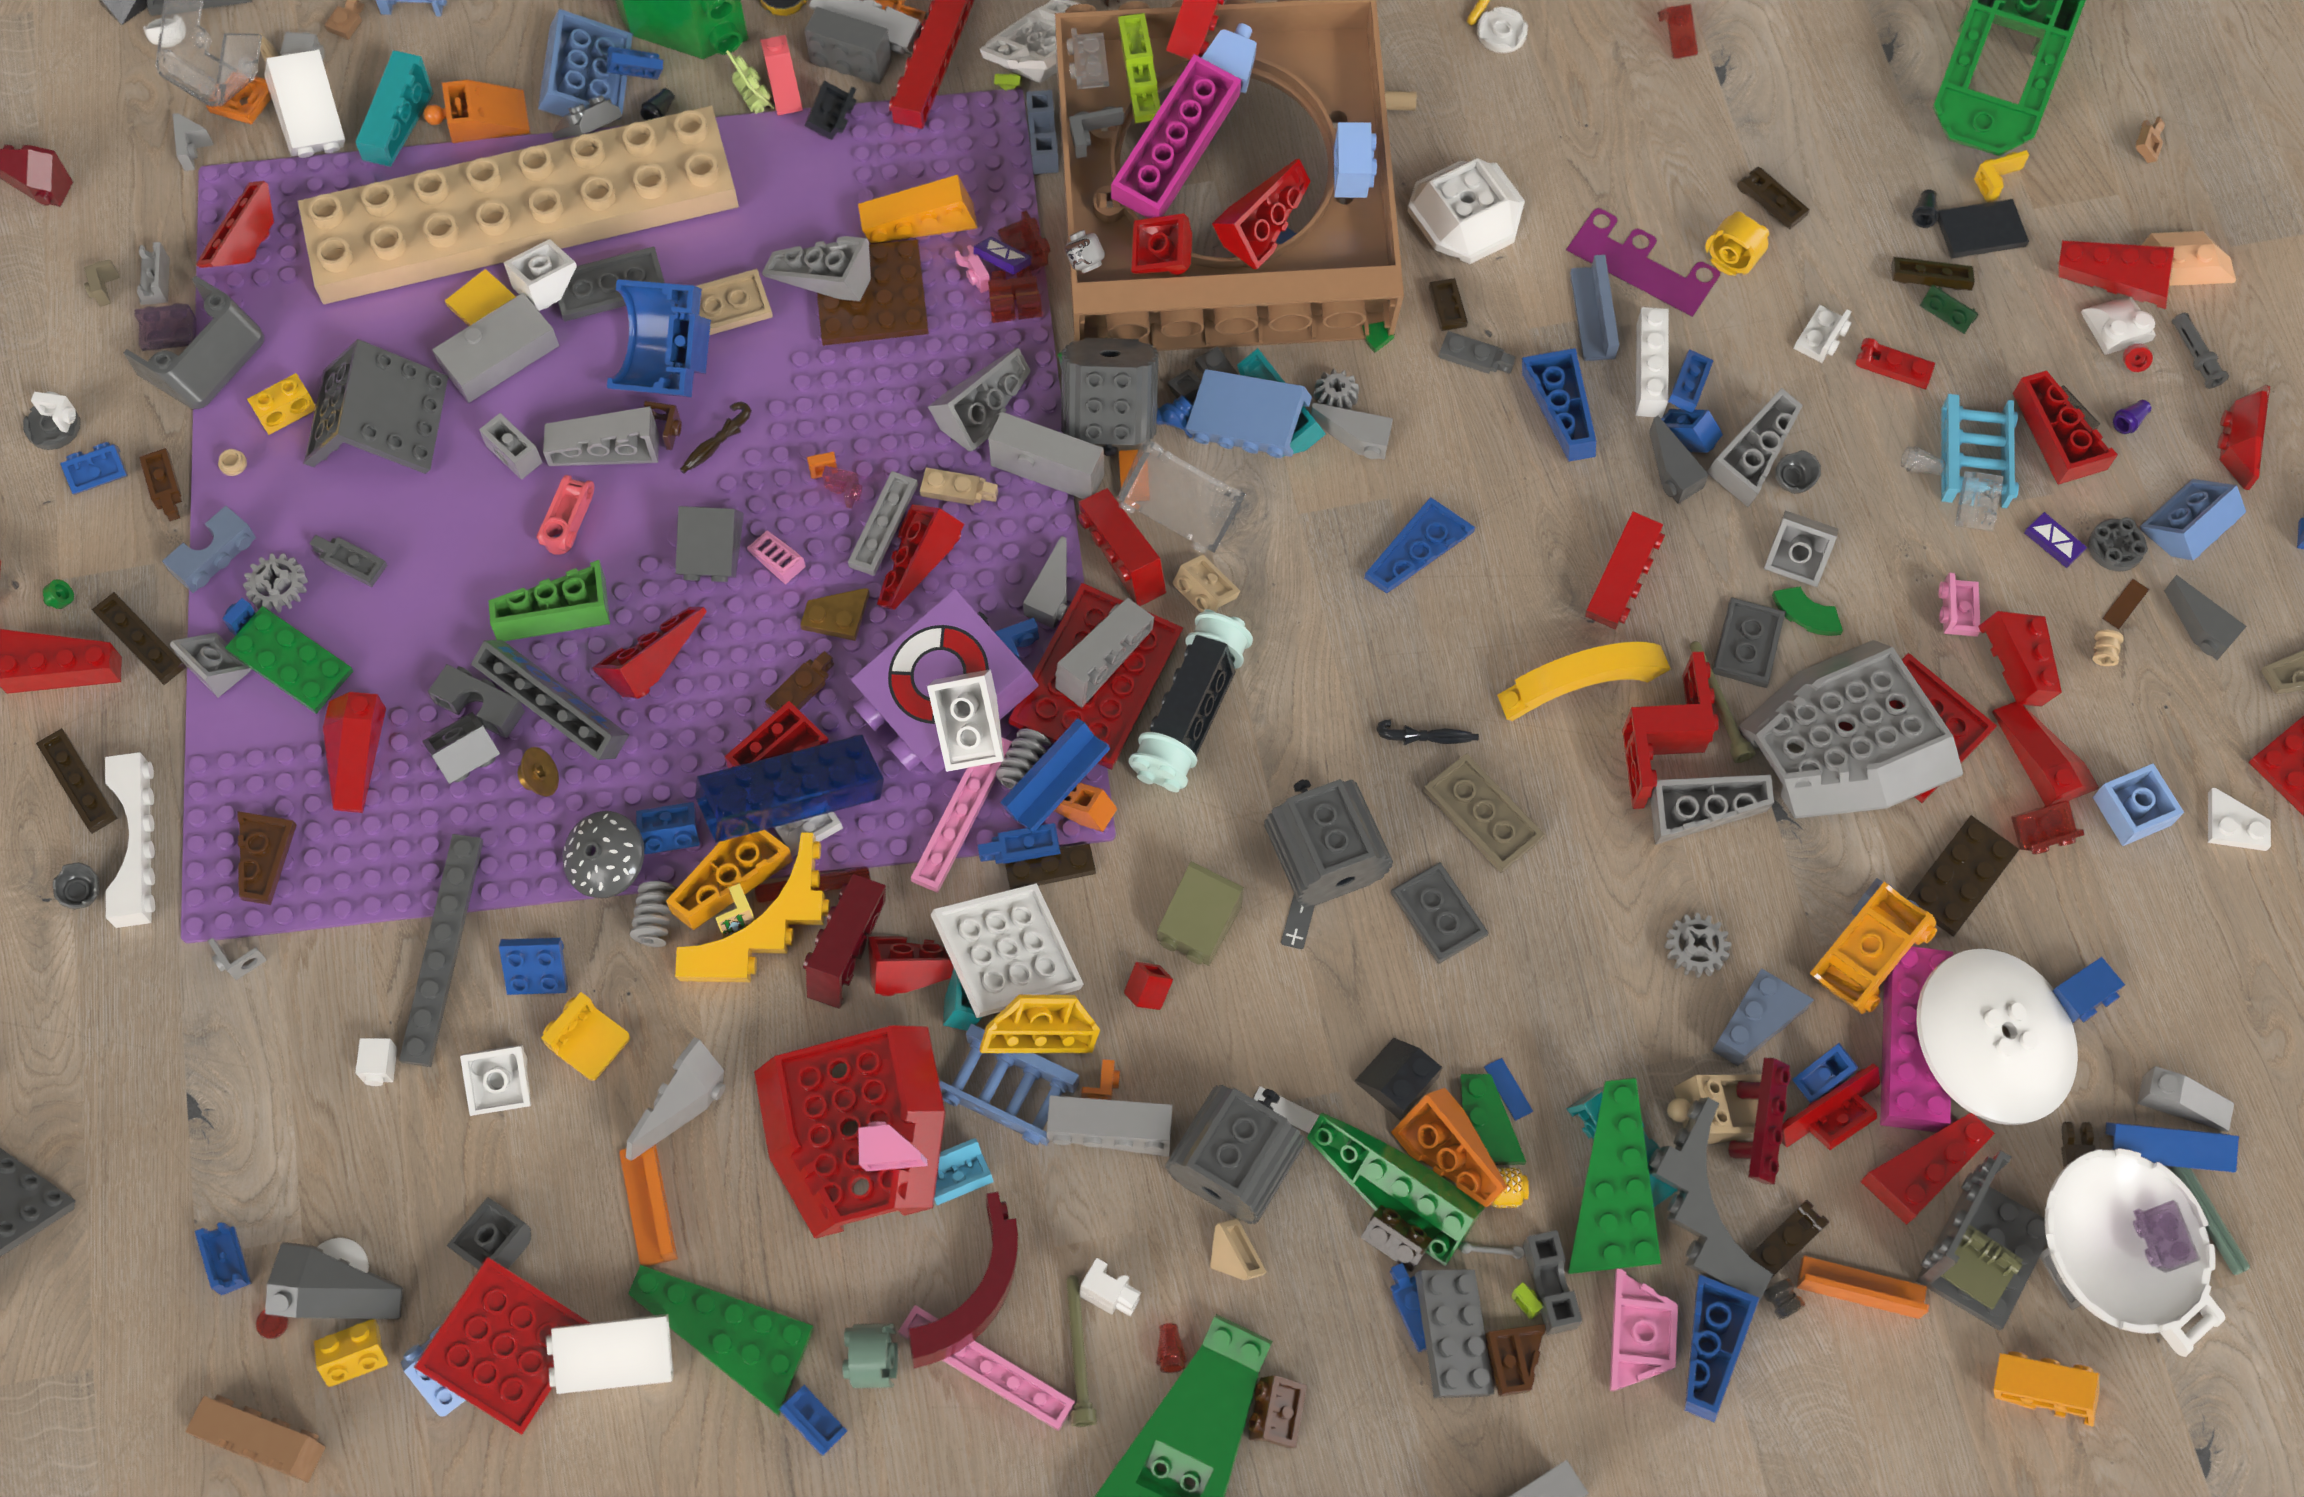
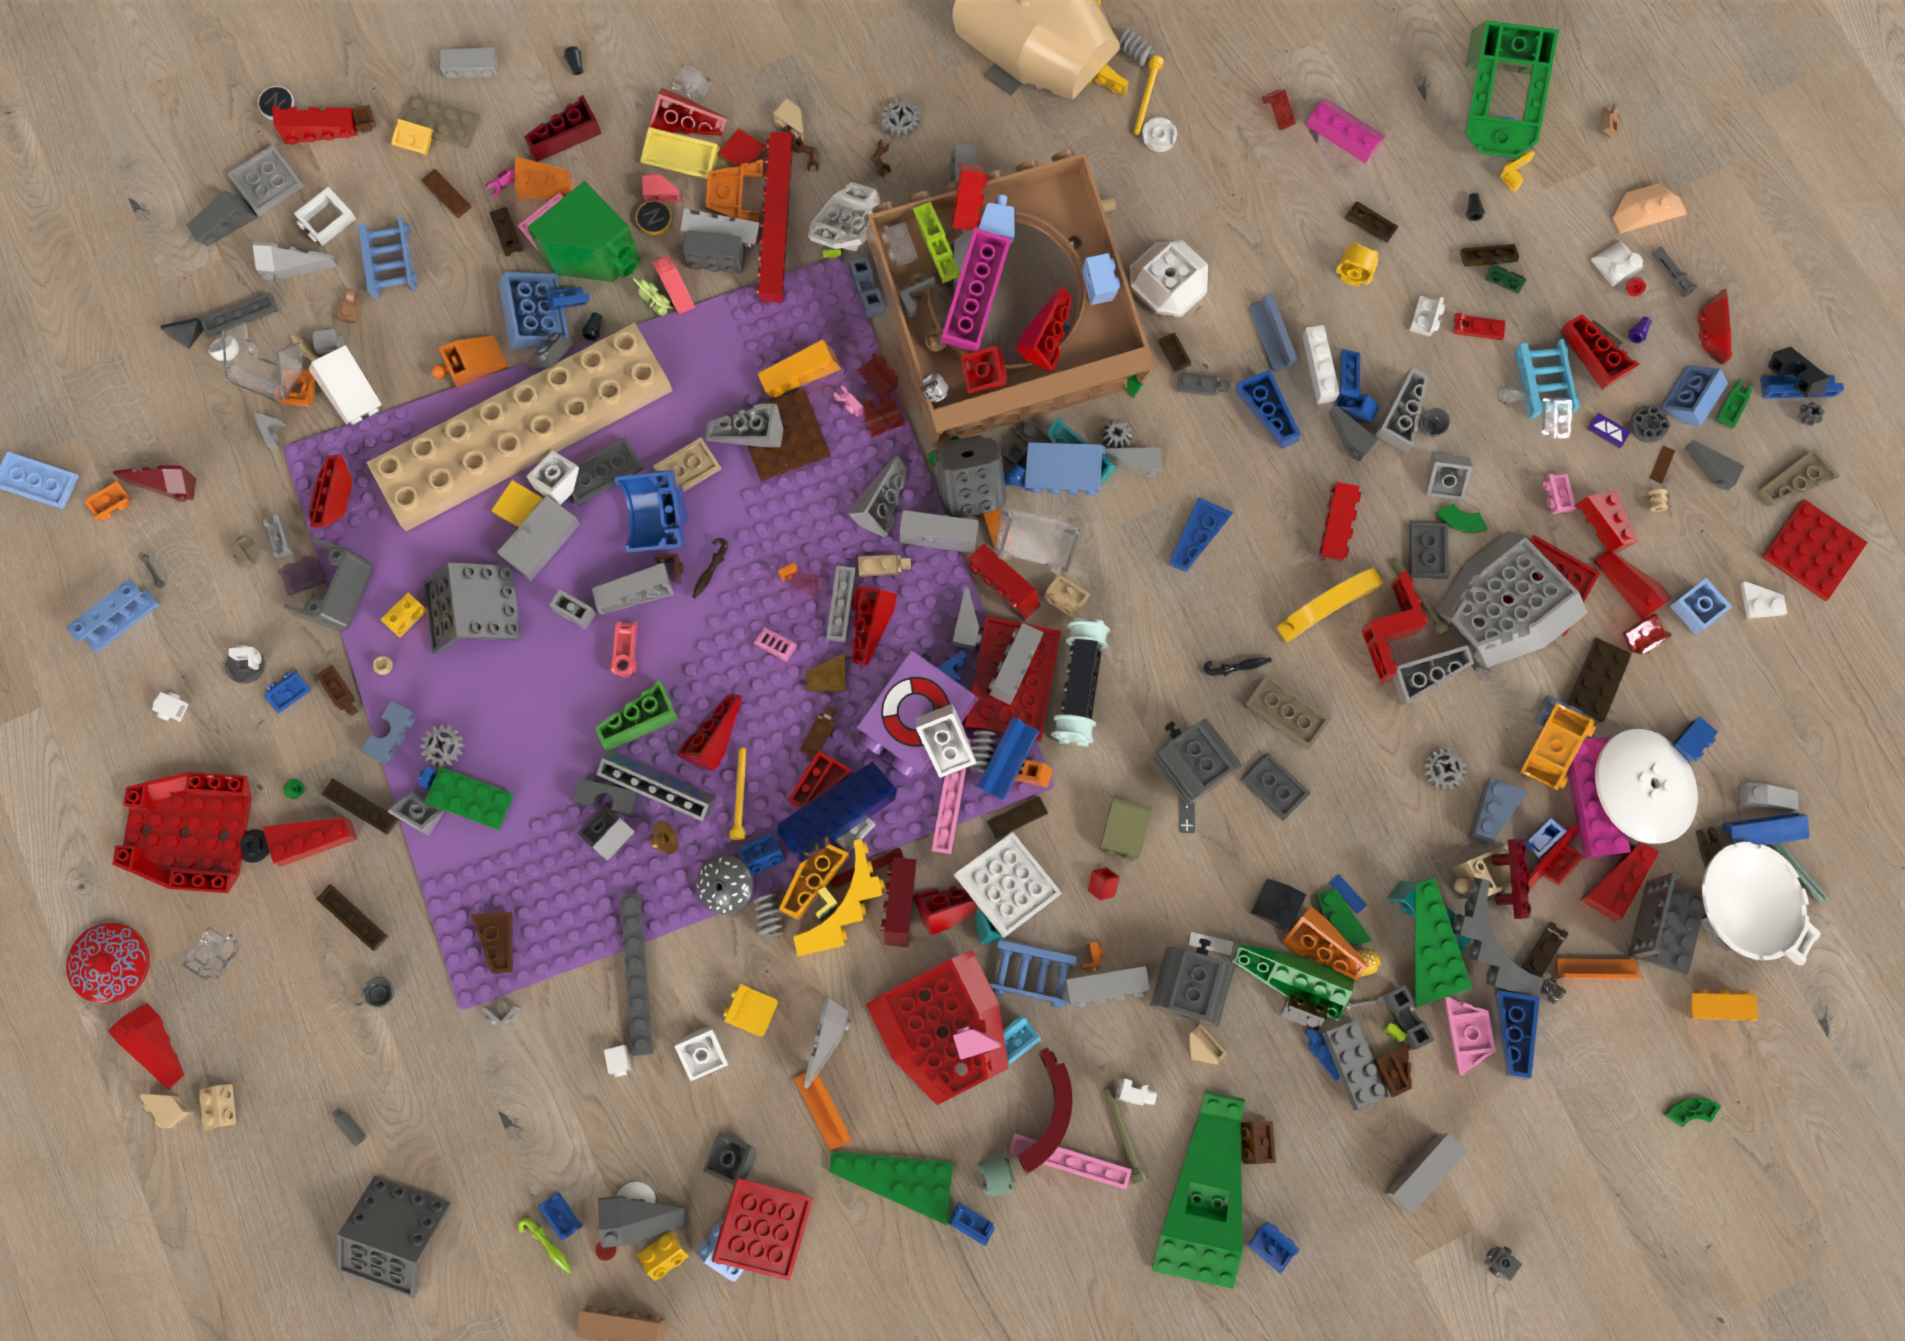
camera: 15 degrees left, 10 degrees up
(129, 894) = (415, 988): white arch -> none
(185, 1276) = (552, 1250): none -> lime piece
(349, 559) = (487, 717): dark grey hinge -> none
(351, 744) = (530, 846): red wedge -> none
(394, 109) = (410, 374): teal wedge -> none
(533, 966) = (702, 970): blue plate -> none
(610, 1354) = (834, 1217): white slope -> none
(644, 790) = (737, 831): none -> yellow piece
(708, 542) = (728, 647): dark grey slope -> none
(830, 109) = (716, 304): black bracket -> none
(1002, 255) = (867, 389): dark purple tile -> none
(1021, 845) = (996, 809): blue hinge -> none
(1041, 1026) = (1045, 932): yellow wedge -> none
(1170, 1351) = (1181, 1119): clear red cone -> none
(1636, 269) = (1291, 295): magenta piece -> none
(1764, 75) = (1345, 130): none -> dark pink slope
(1982, 228) = (1514, 213): black tile -> none
(1982, 1267) = (1674, 942): olive hinge -> none
(2120, 268) = (1616, 226): red wedge -> none
(2166, 1237) = (1776, 892): clear purple bracket -> none
(2250, 546) = (1734, 405): none -> green hinge

